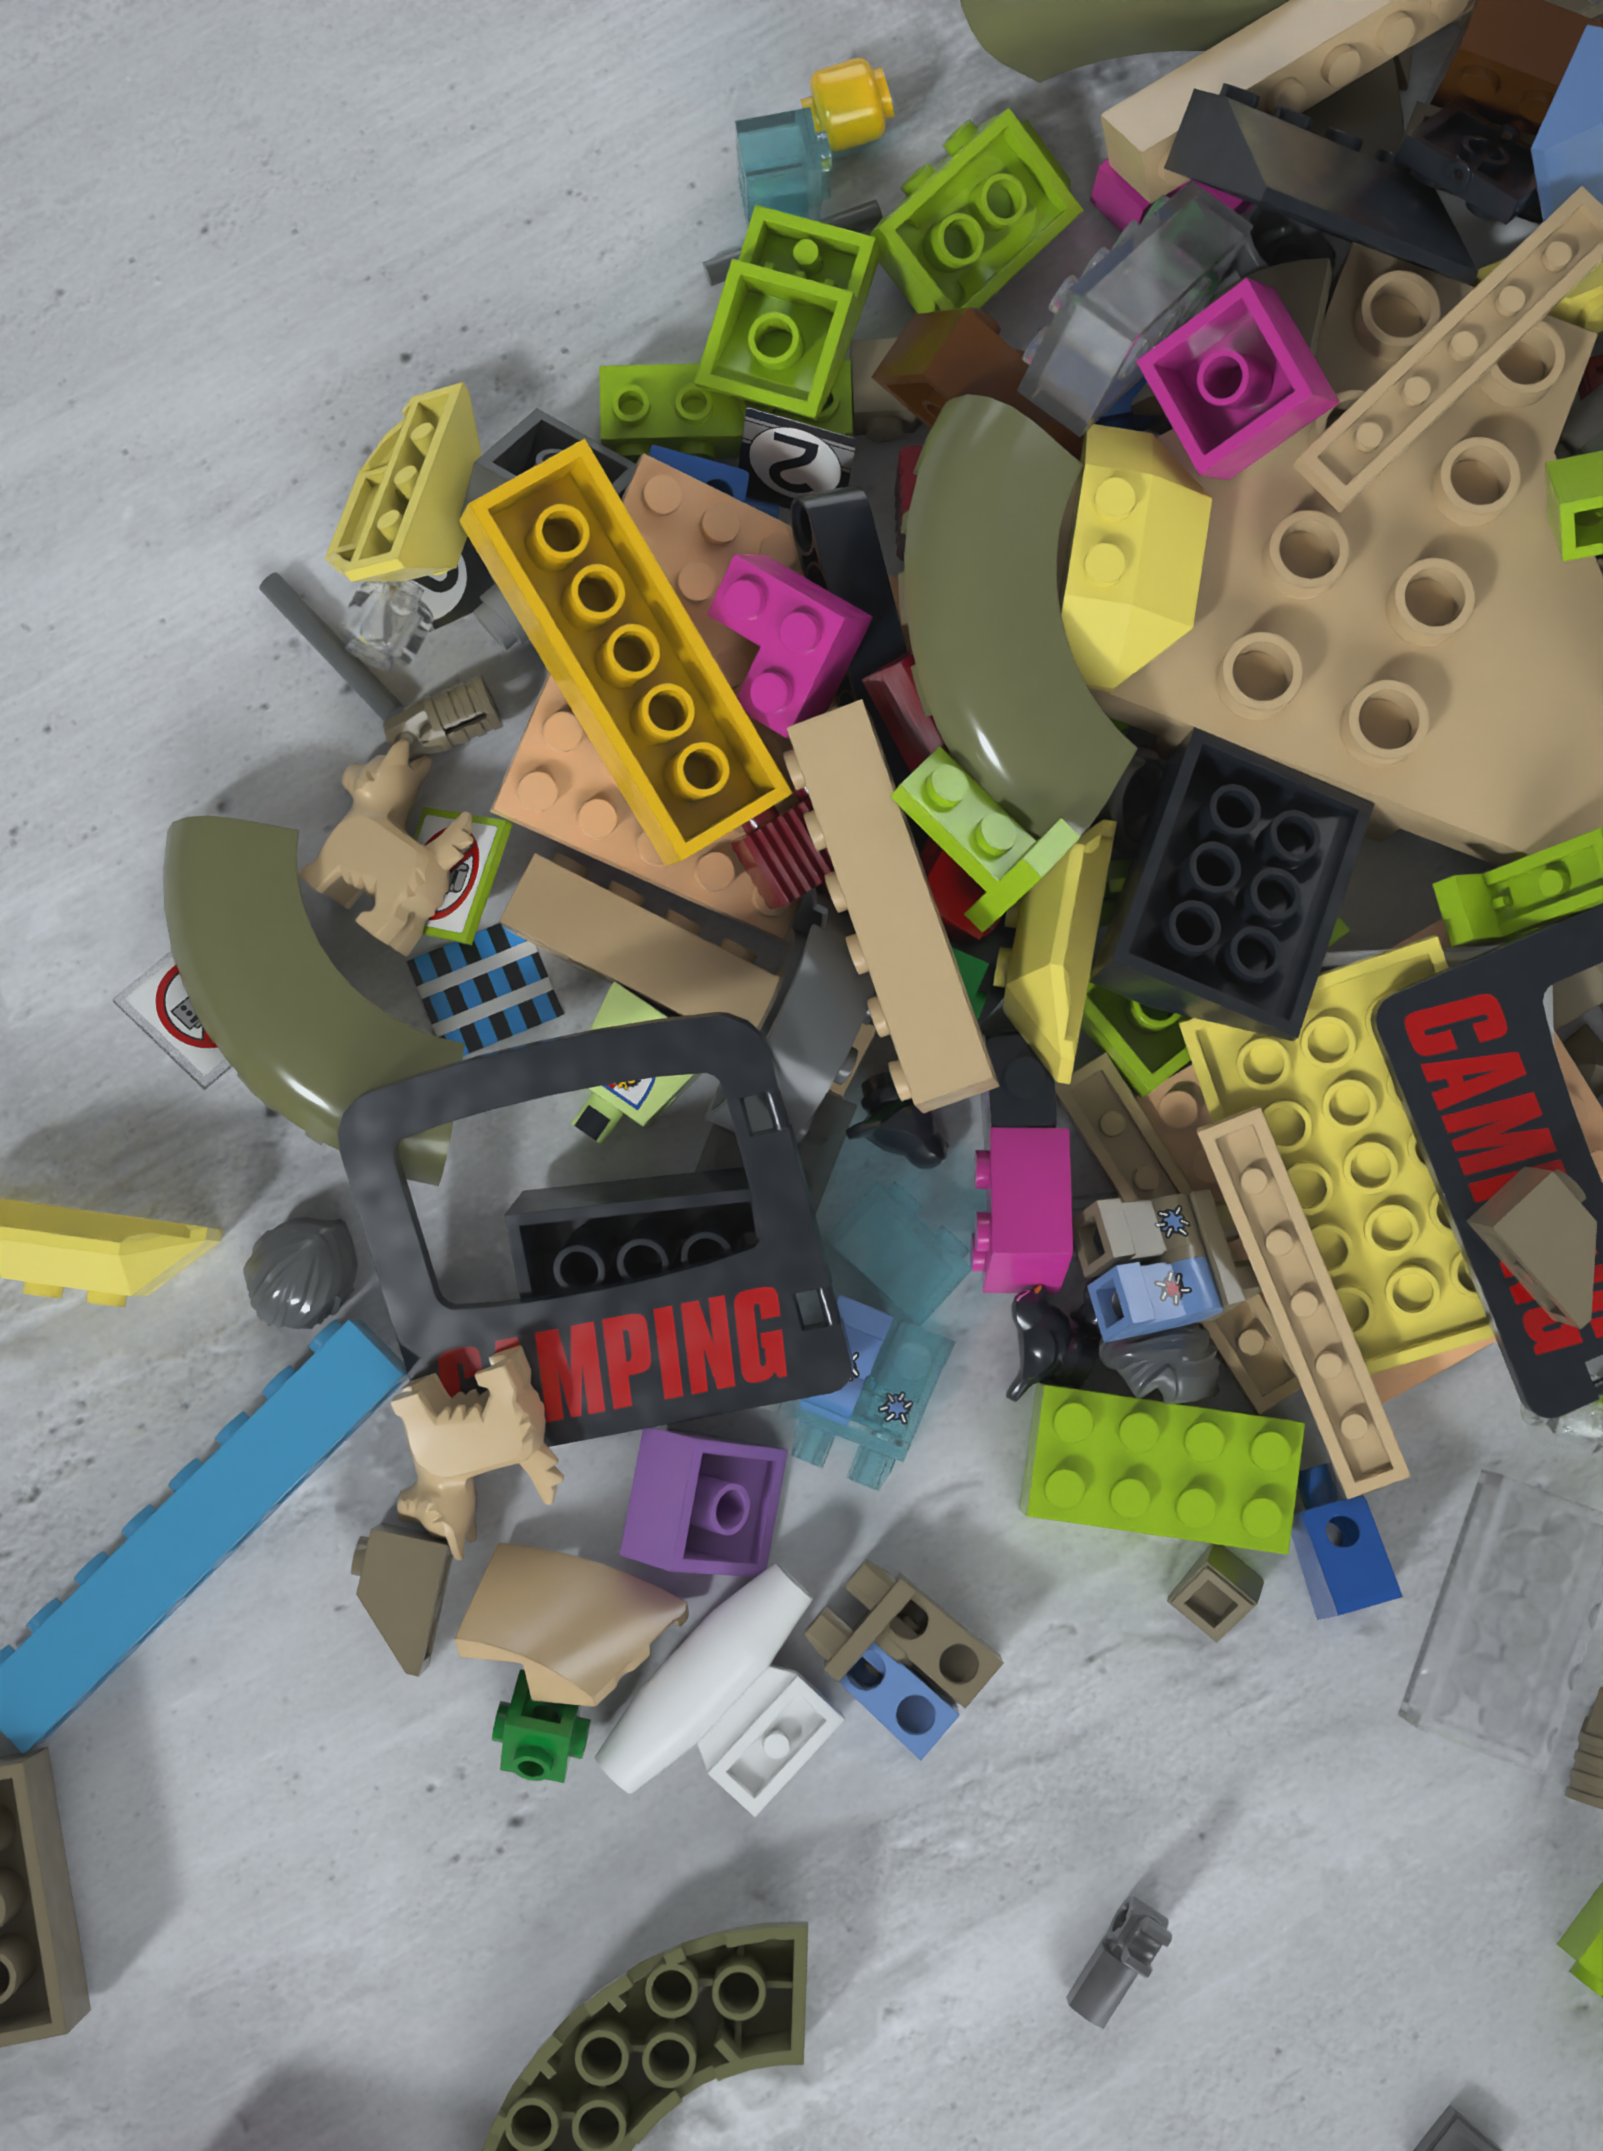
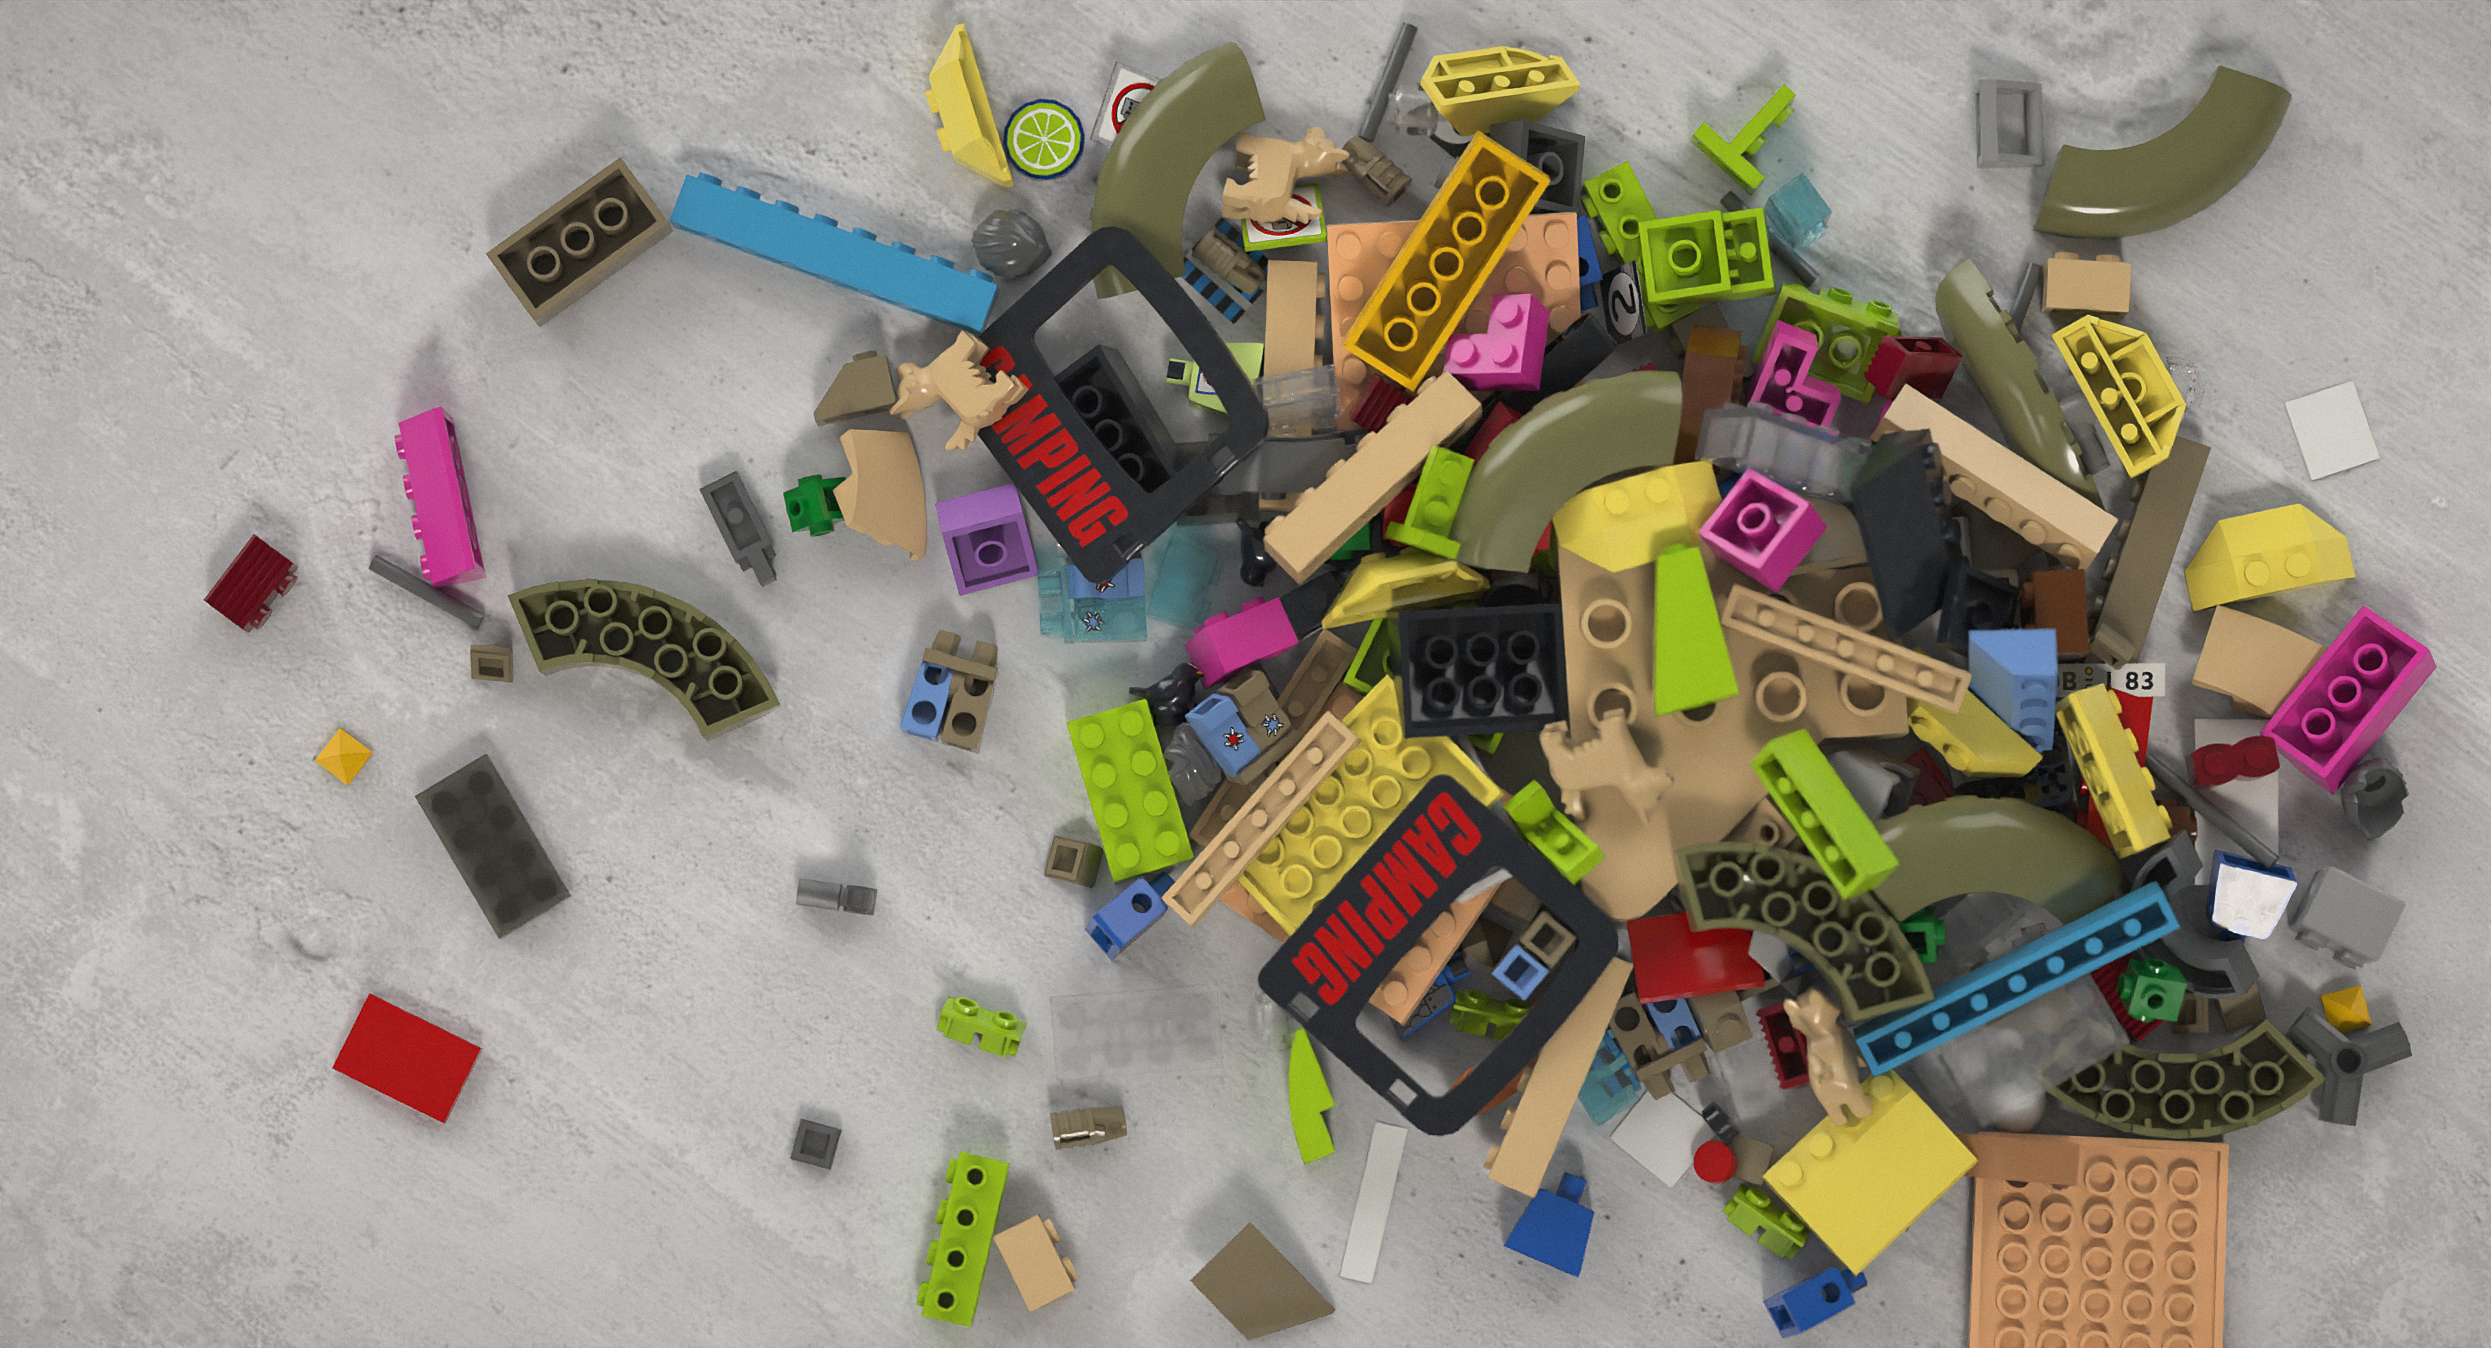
camera: 70 degrees right, 0 degrees up
(178, 1156) = (1044, 140): none -> tile
(474, 977) = (1229, 261): none -> dark tan hinge
(519, 1851) = (740, 526): none -> dark grey hinge
(659, 232) = (1748, 141): none -> lime bracket
(721, 959) = (1301, 399): none -> clear brick
(727, 1697) = (883, 600): white plate -> none
(849, 103) = (1866, 231): yellow head -> none
(995, 271) = (1784, 382): none -> dark pink brick
(1065, 118) = (1918, 361): none -> dark red brick
(1345, 558) = (1689, 644): none -> lime slope
(1411, 1813) = (964, 1017): none -> lime hinge
(1465, 766) = (1600, 761): none -> tan animal
(1544, 1240) = (1355, 925): dark tan slope -> none

